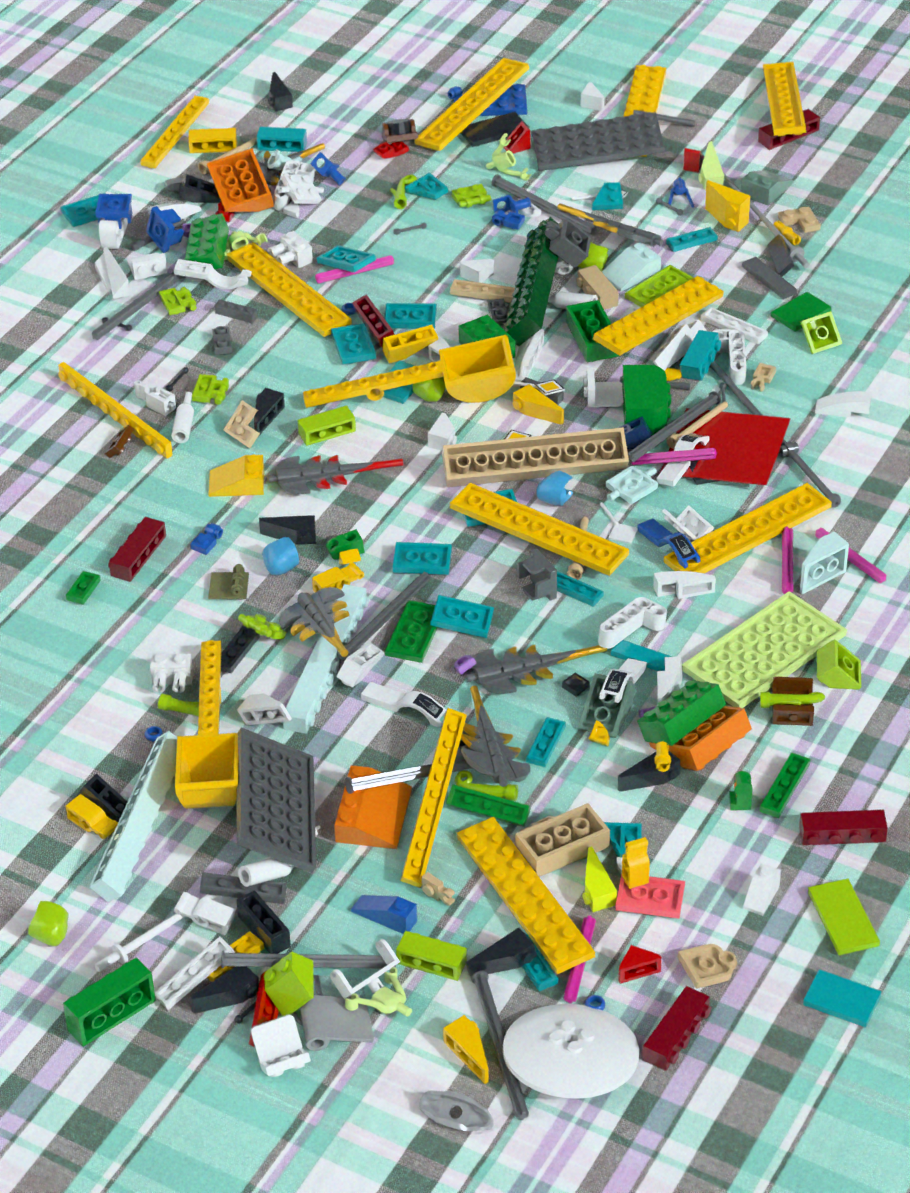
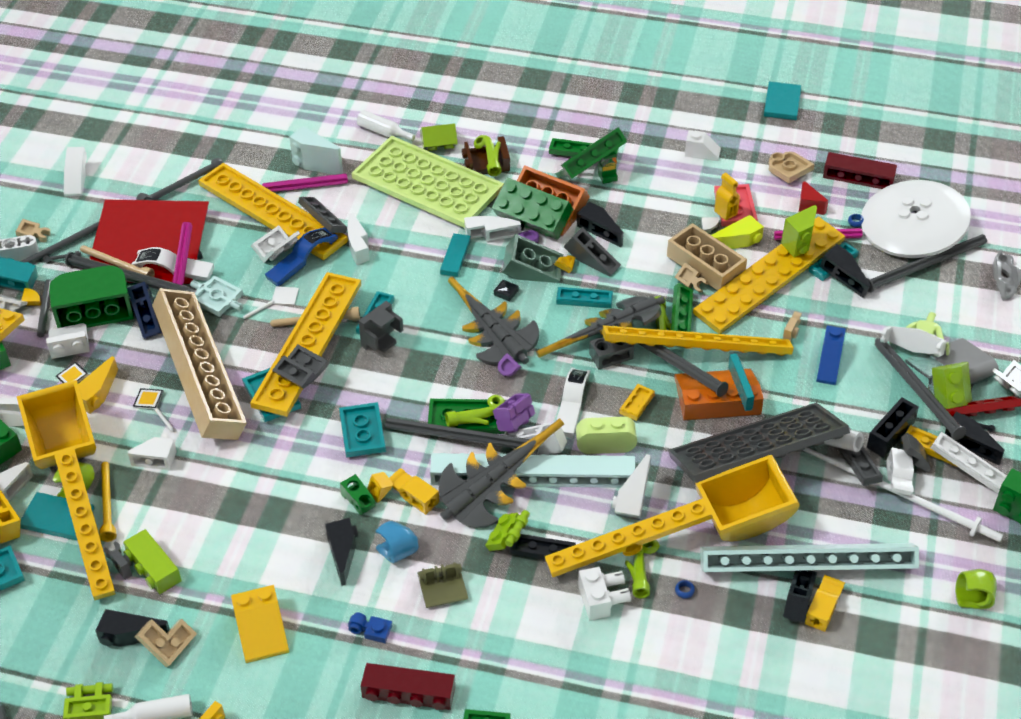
camera: 105 degrees left, 5 degrees up
(221, 924) = (915, 449): none -> dark grey slope
(293, 476) = (244, 568): dark grey animal -> none
(335, 403) = (120, 562): none -> dark grey plate
(342, 709) = (606, 435): none -> yellowish green brick
(351, 799) = (741, 382): none -> teal tile
(371, 405) = (107, 531): none -> yellow piece
(382, 747) = (637, 402): none -> yellow plate
(393, 649) = (514, 412): none -> medium lavender brick
(405, 613) = (473, 416): none -> lime plant
(431, 955) = (863, 316): lime brick -> none
(462, 616) = (441, 381): teal tile -> none
(464, 1040) = (940, 276): yellow slope -> none
(498, 513) = (301, 366): none -> dark grey slope
(550, 905) = (798, 231): none -> lime slope
(552, 489) = (239, 343): dark azure piece -> none
(604, 754) = (591, 253): none -> dark grey slope
(617, 679) = (493, 251): white piece -> none
(622, 833) = (677, 224): teal wing -> none
(631, 617) = (412, 261): white beam -> none
(662, 757) = (598, 205): yellow pin -> none
(724, 560) = (322, 215): none -> dark grey tile
(746, 765) = (592, 154): none -> green fence
(843, 827) = (618, 112): dark red brick -> none
(843, 916) = (704, 108): lime tile -> none
(858, 561) = (281, 154): dark pink axle -> none
(869, 624) = (382, 125): none -> white piece

